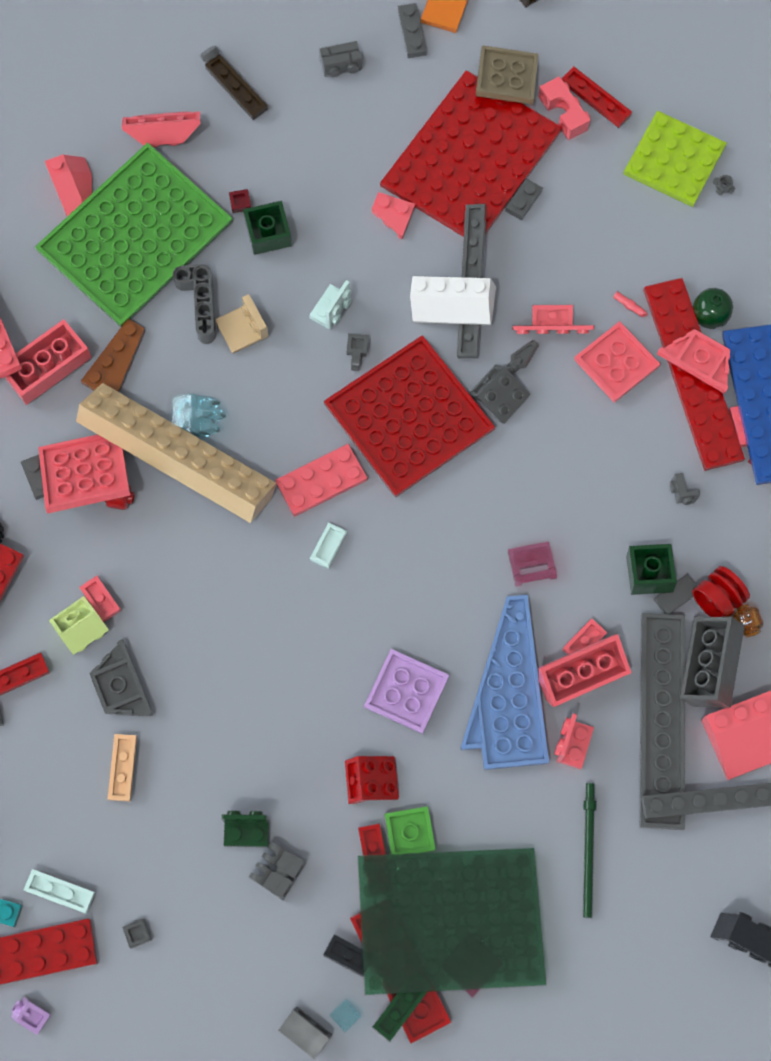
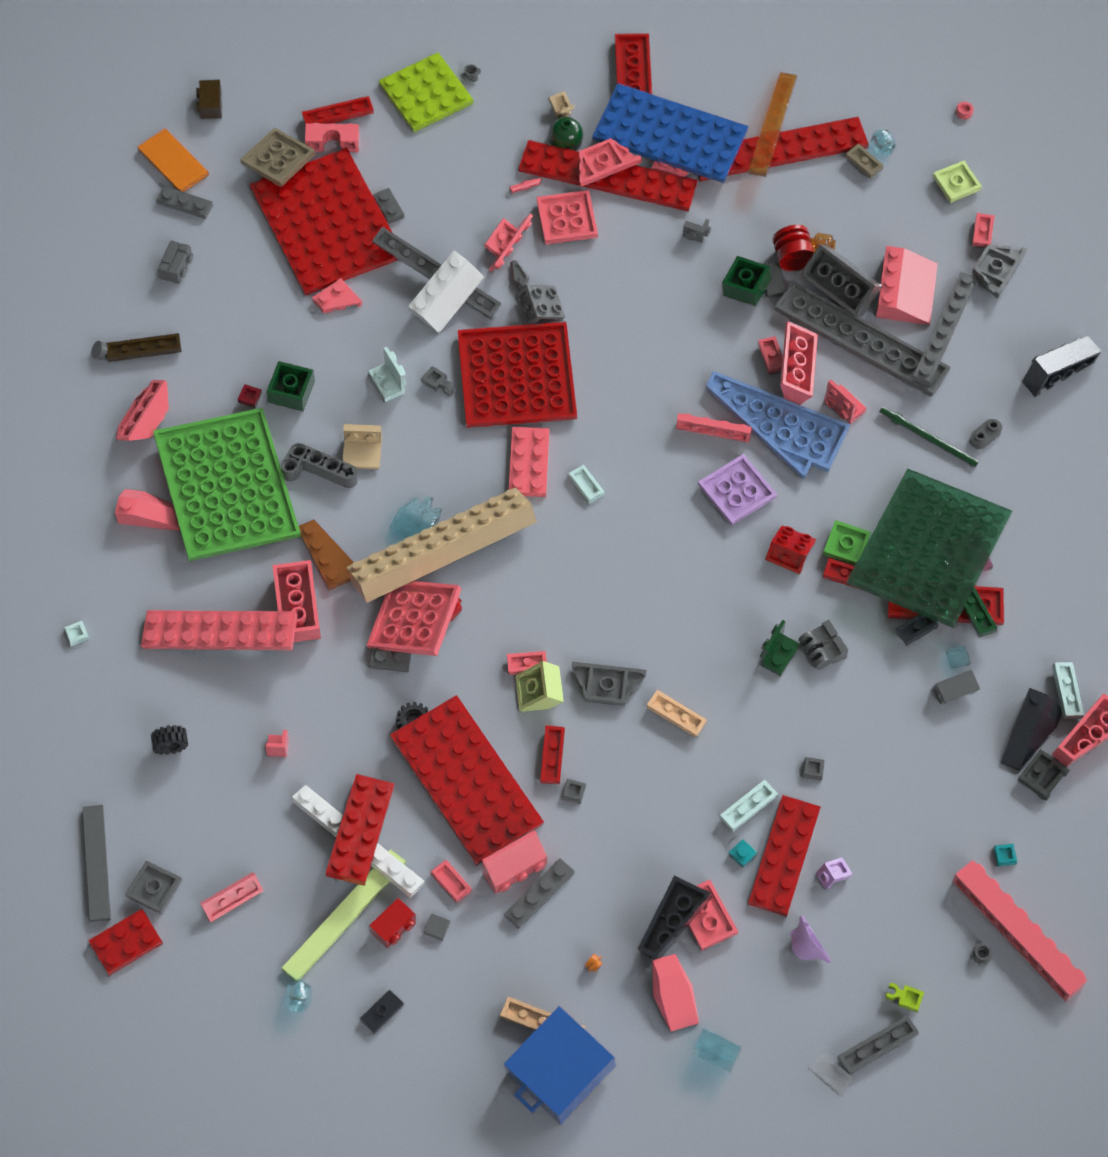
camera: 60 degrees left, 10 degrees down
(467, 638) = (713, 427): none -> coral plate
(529, 557) = (684, 354): clear pink plate -> none
(630, 908) = (986, 432): none -> dark grey plate
(743, 284) = (561, 105): none -> tan bracket

